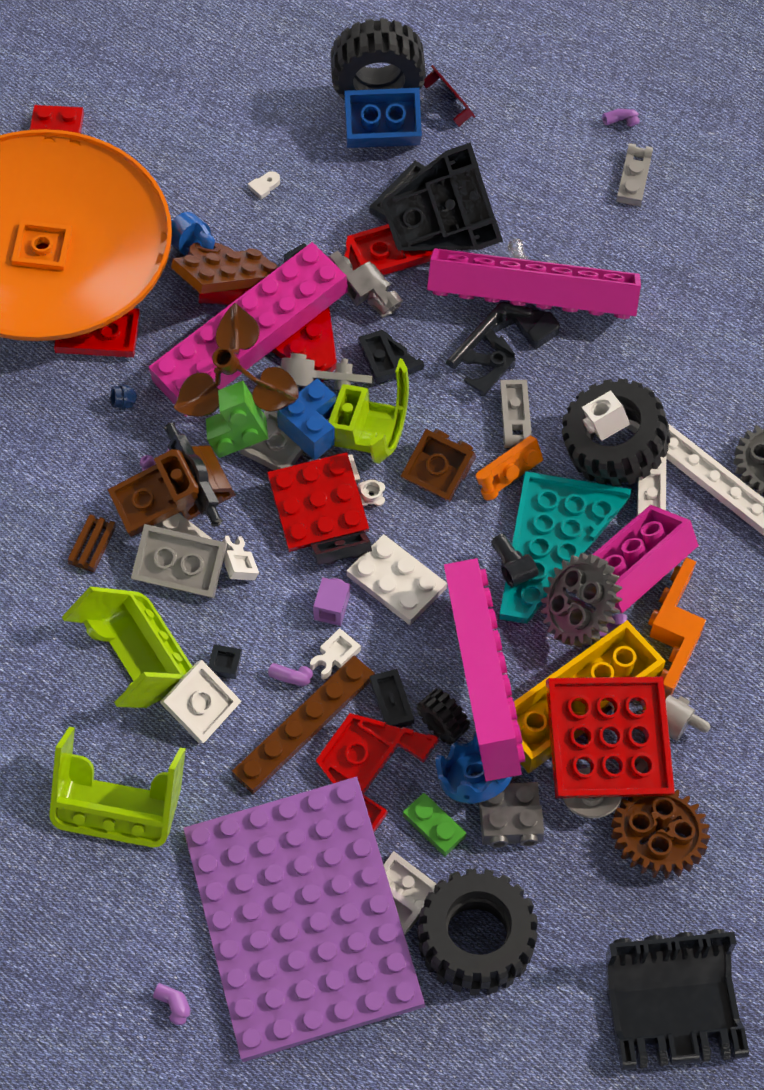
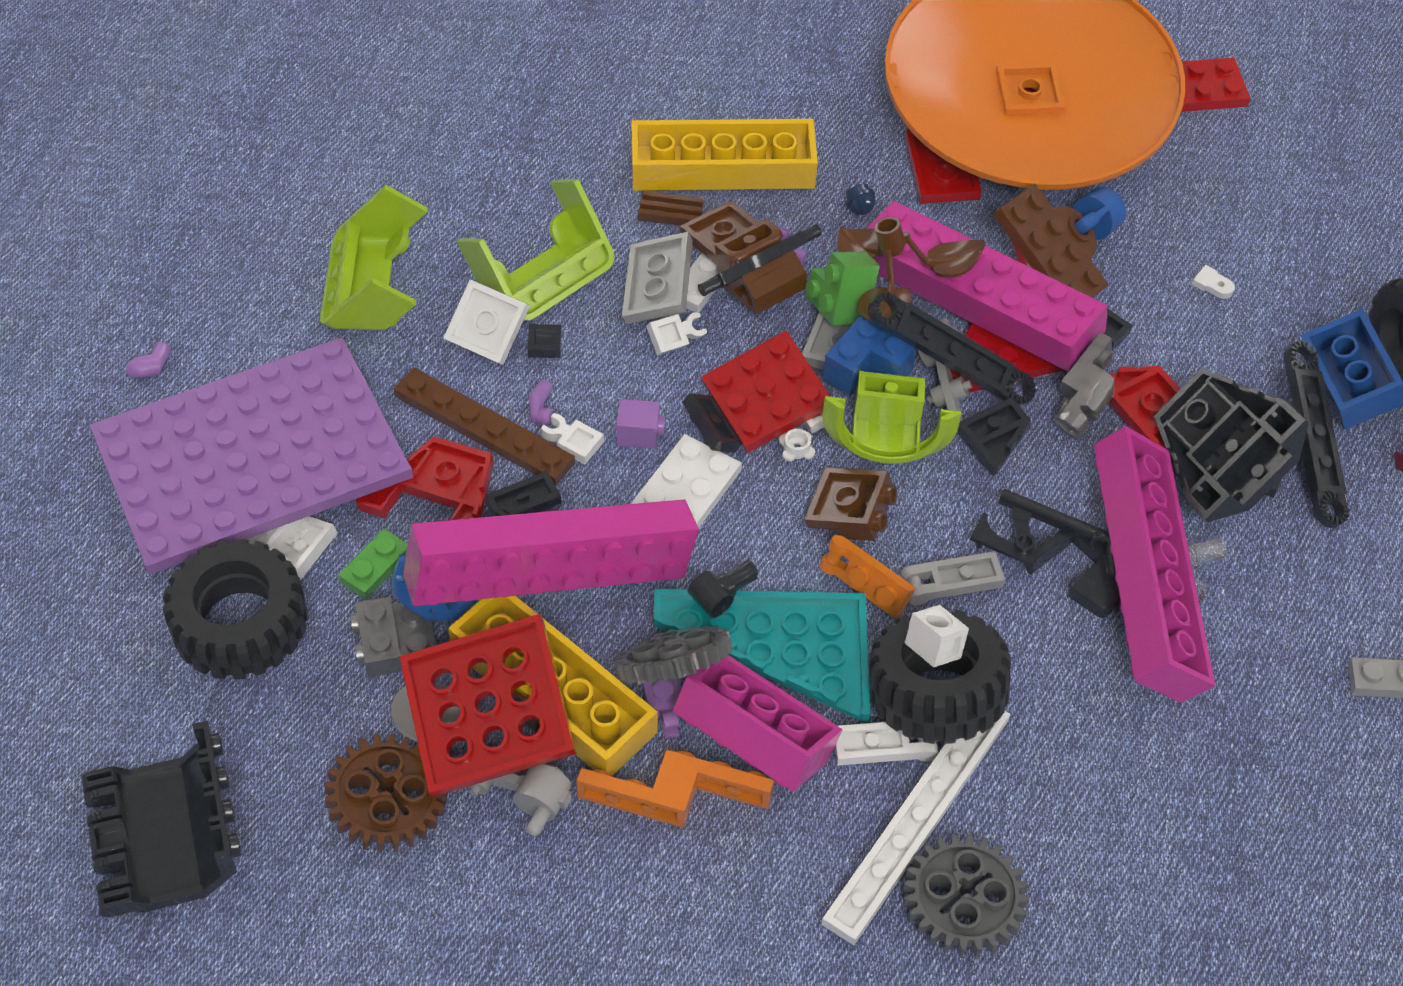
camera: 80 degrees right, 5 degrees down
(49, 487) = (724, 154): none -> yellow brick
(321, 358) = (951, 348): none -> black plate
(421, 154) = (1320, 444): none -> black plate

